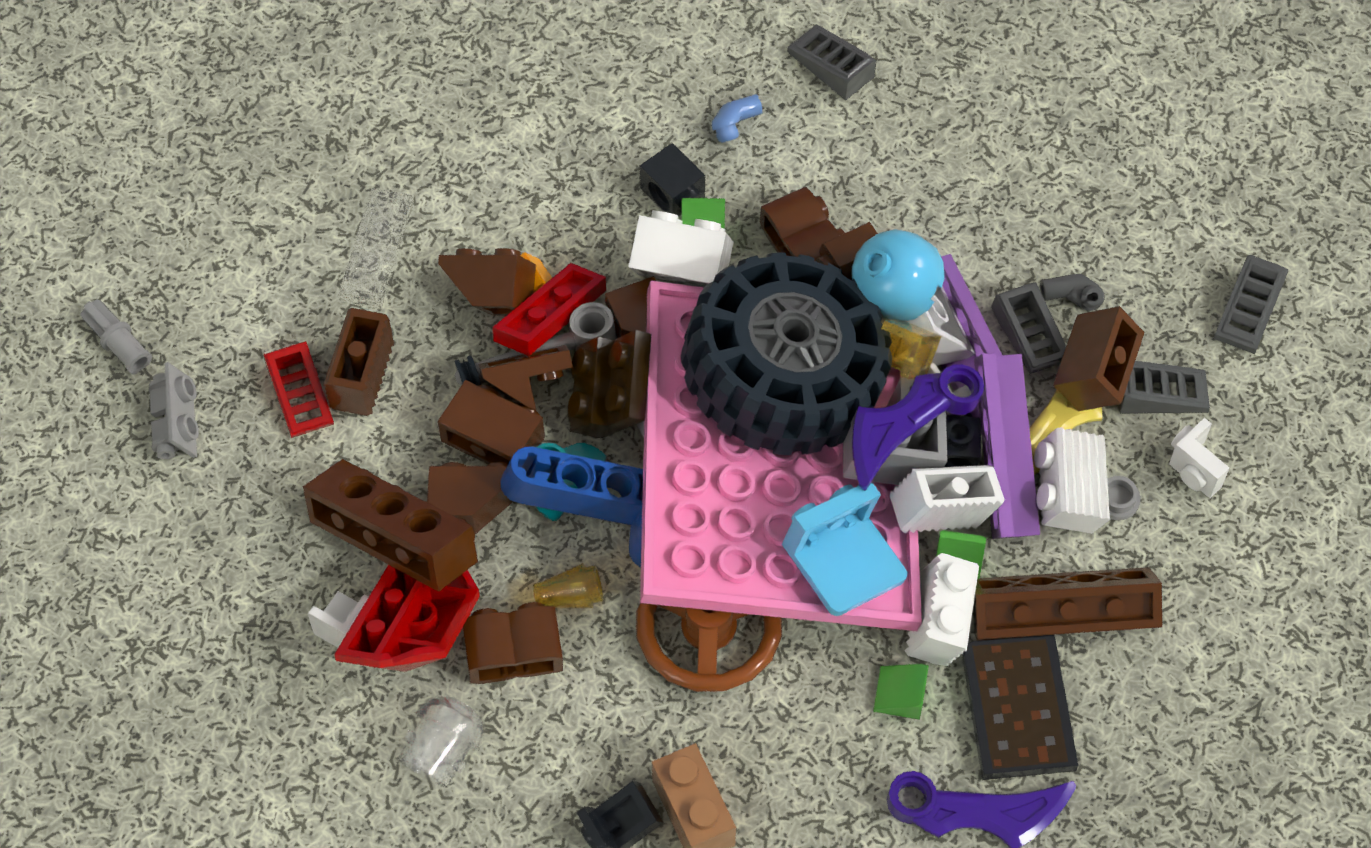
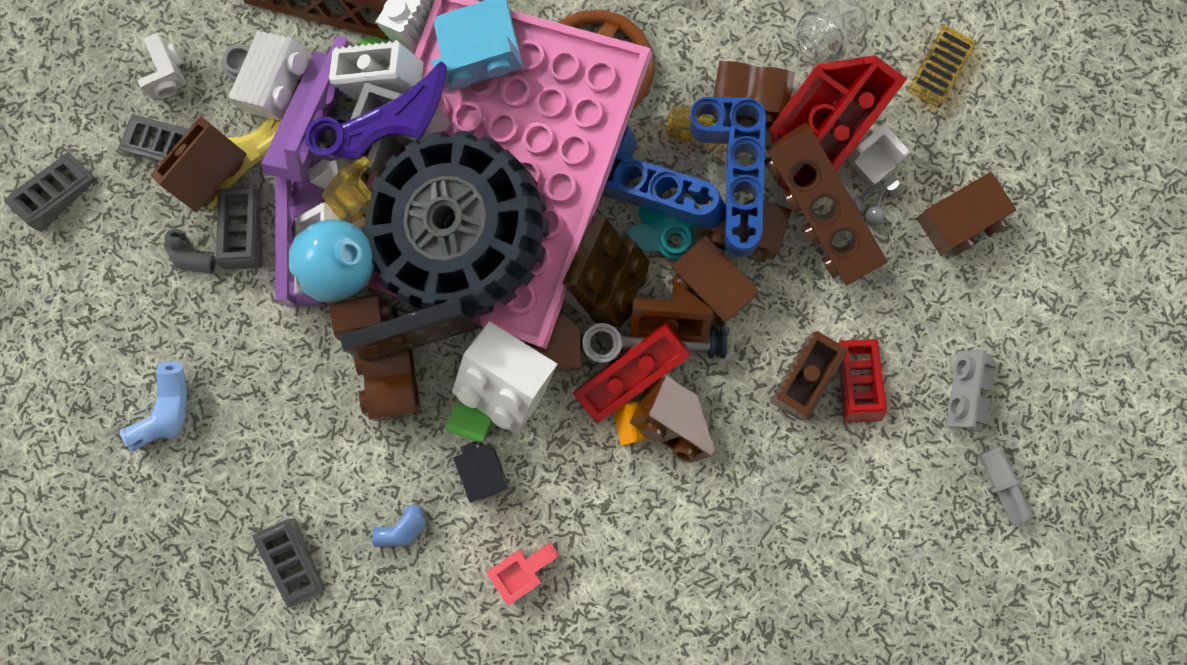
camera: 160 degrees left, 20 degrees up
(222, 586) = (966, 214): none -> reddish brown brick
(291, 758) = (941, 66): none -> clear yellow tile
(329, 564) = (875, 215): none -> light grey piece
(498, 514) = (738, 176): none -> blue beam
(600, 111) = (519, 574): none -> coral plate
(798, 230) = (410, 331): none -> black tile
(1014, 141) = (168, 411): none -> light blue arm

